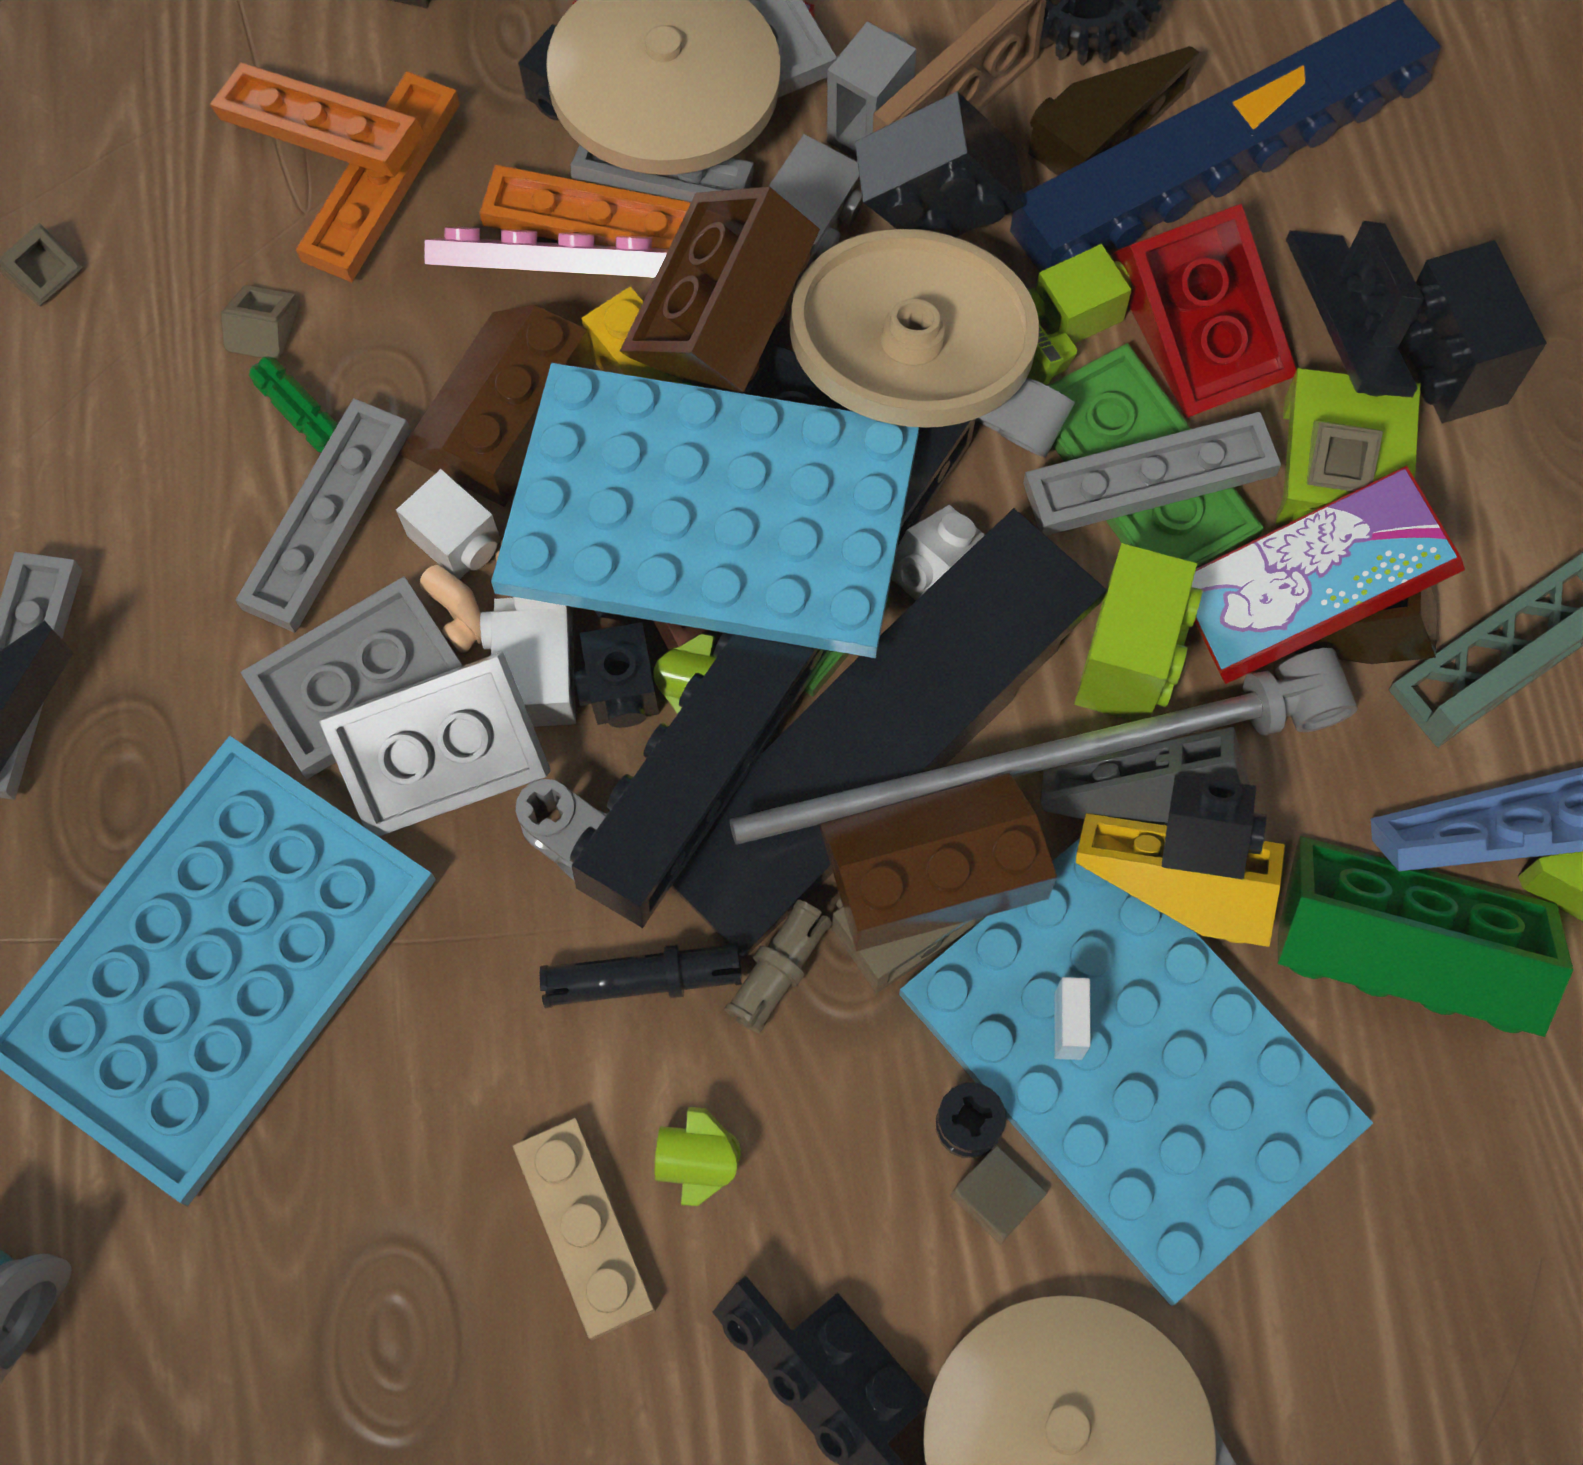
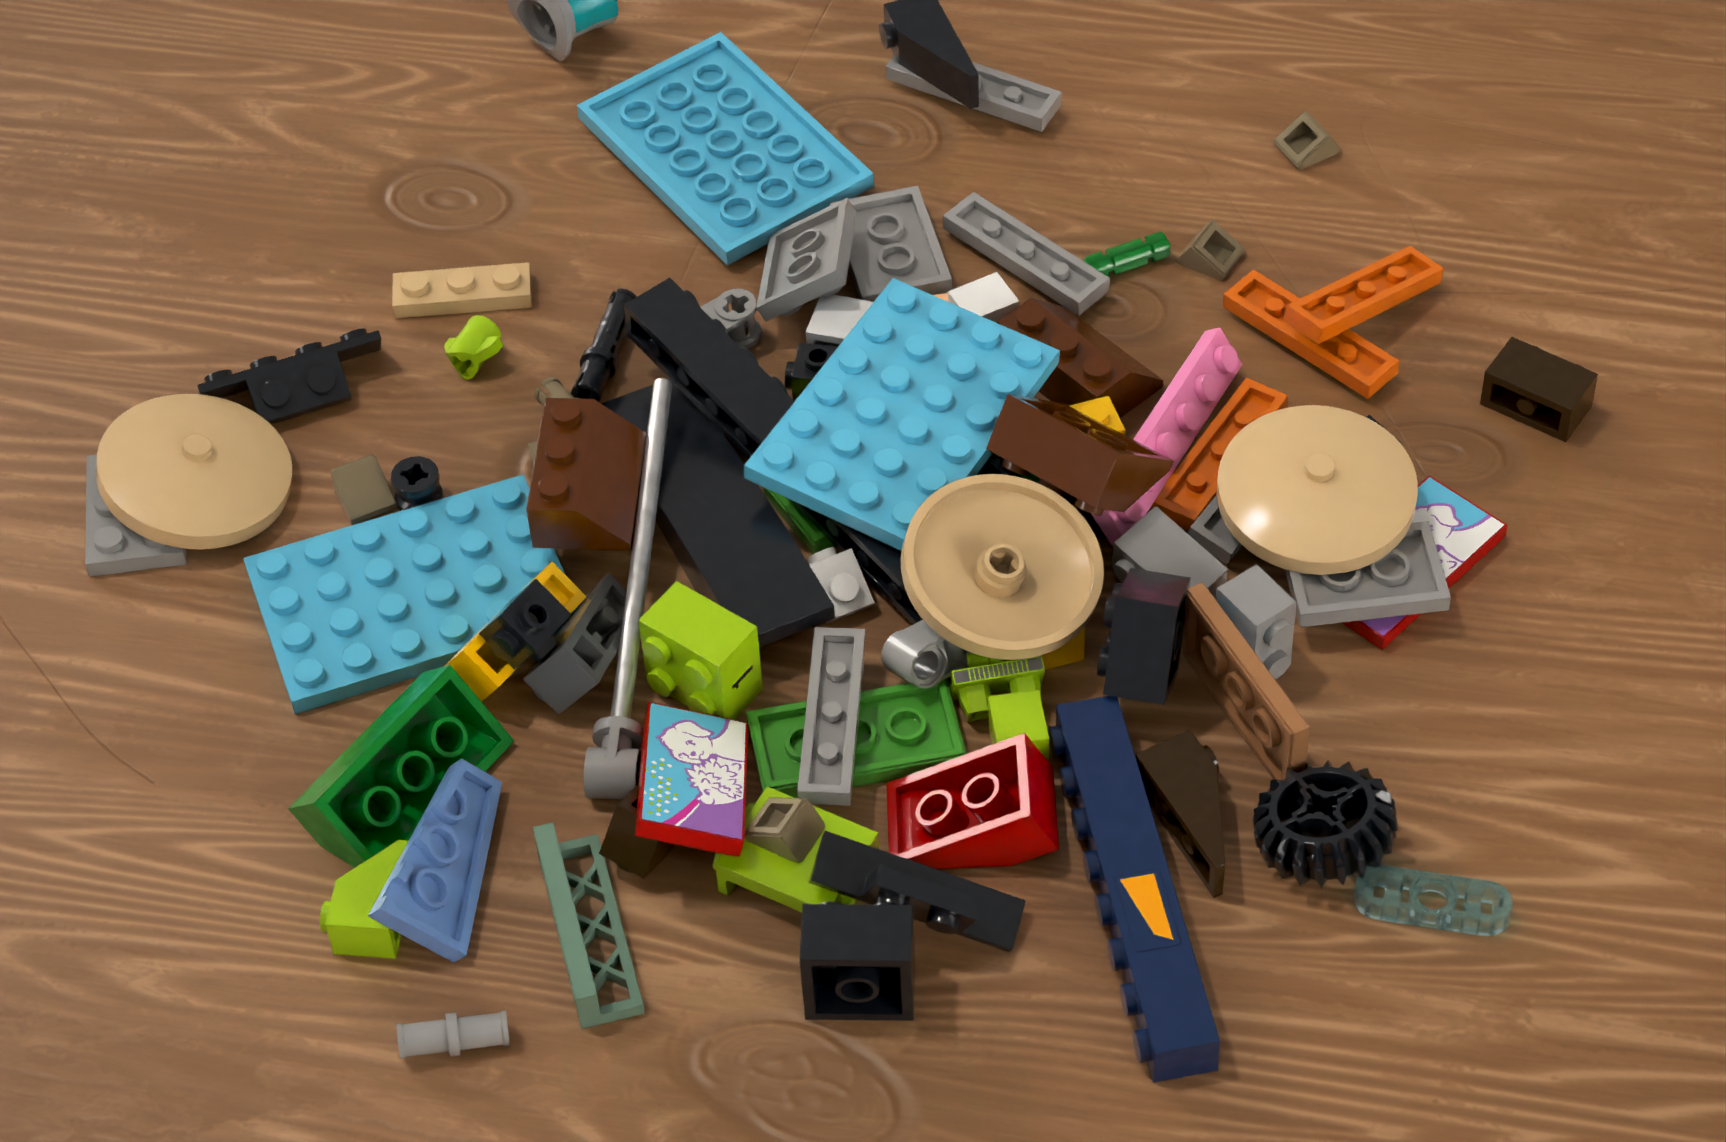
camera: 110 degrees right, 20 degrees down
(1072, 1018) = (443, 532): white tile -> none

